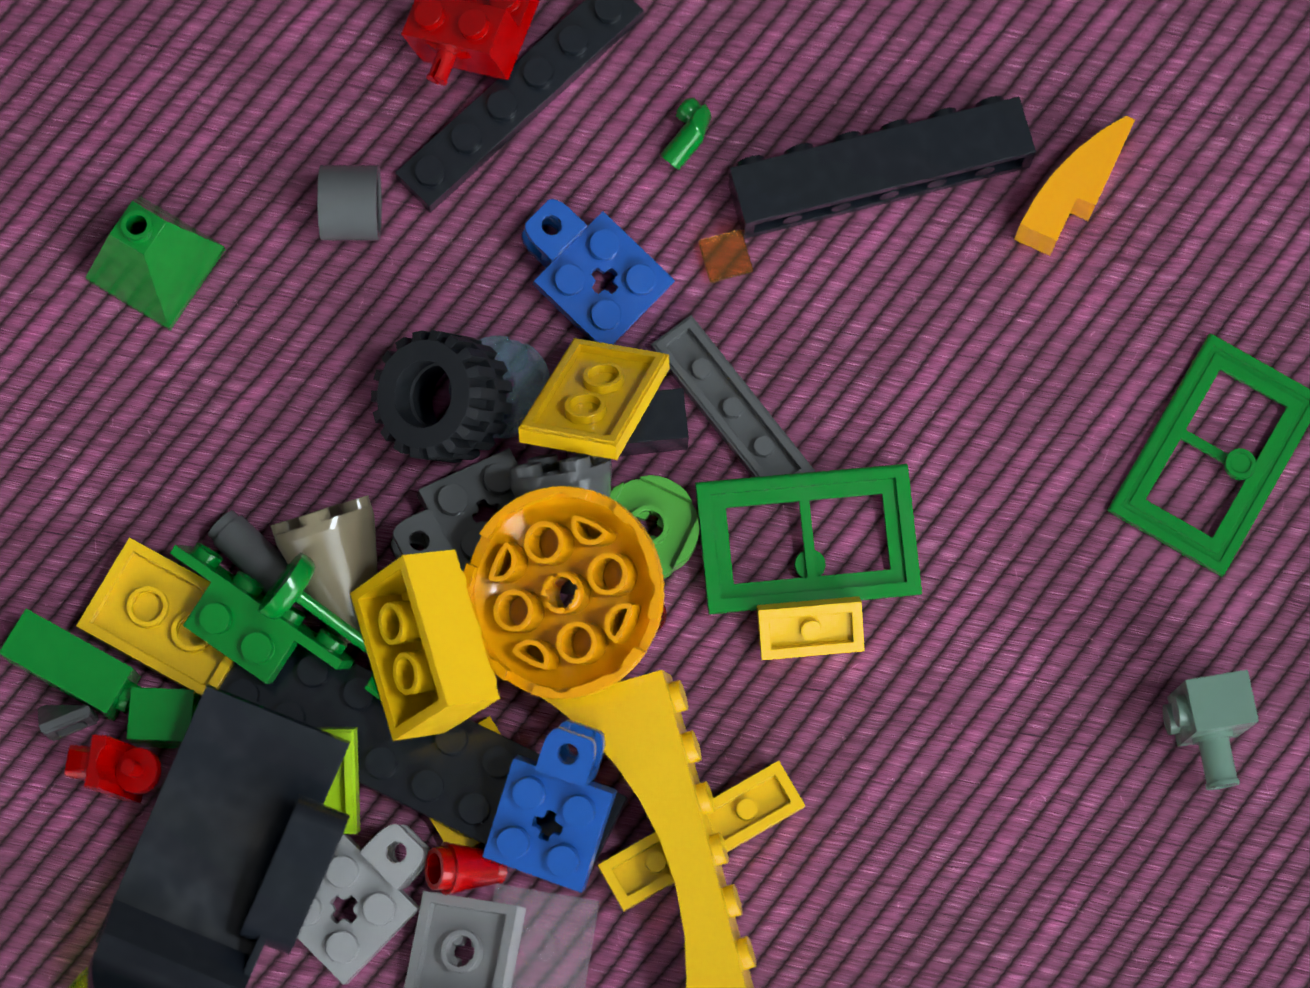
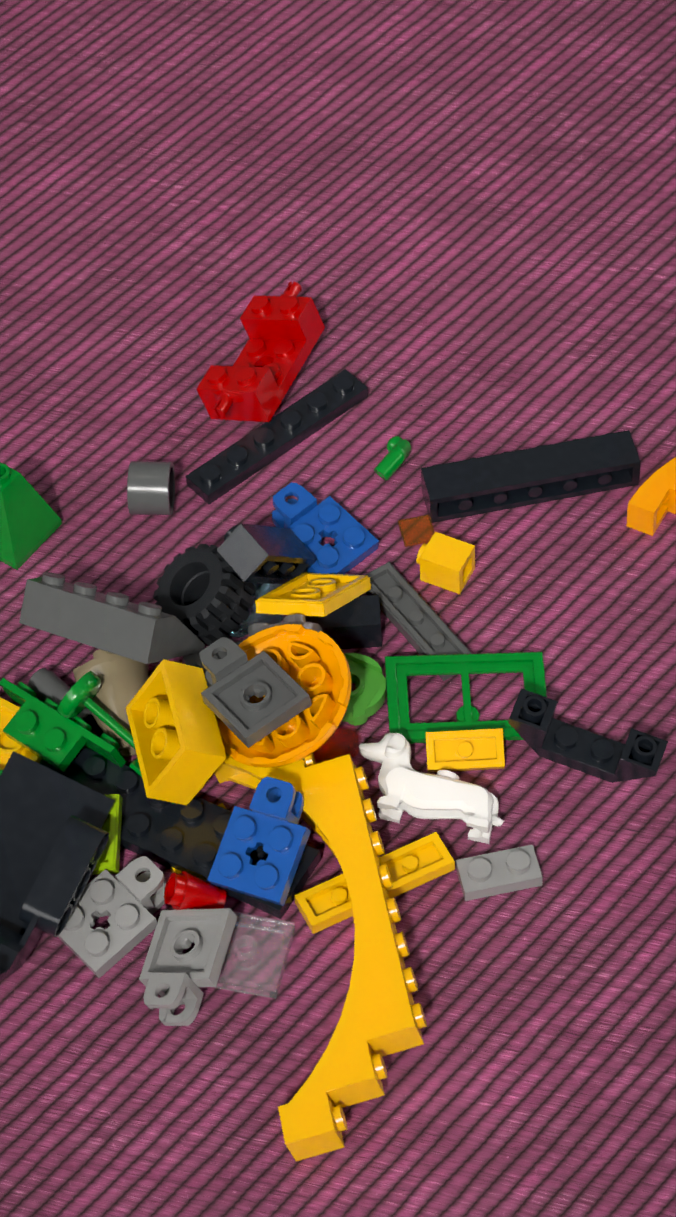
camera: 10 degrees right, 25 degrees down
(311, 466) = (105, 620): none -> dark grey slope
(511, 582) = (237, 679): none -> dark grey plate
(523, 336) = (265, 553): none -> black brick
(762, 701) = (428, 794): none -> white animal
(770, 318) = (446, 562): none -> yellow brick
(862, 811) = (499, 872): none -> light grey plate
(972, 621) = (581, 748): none -> black slope

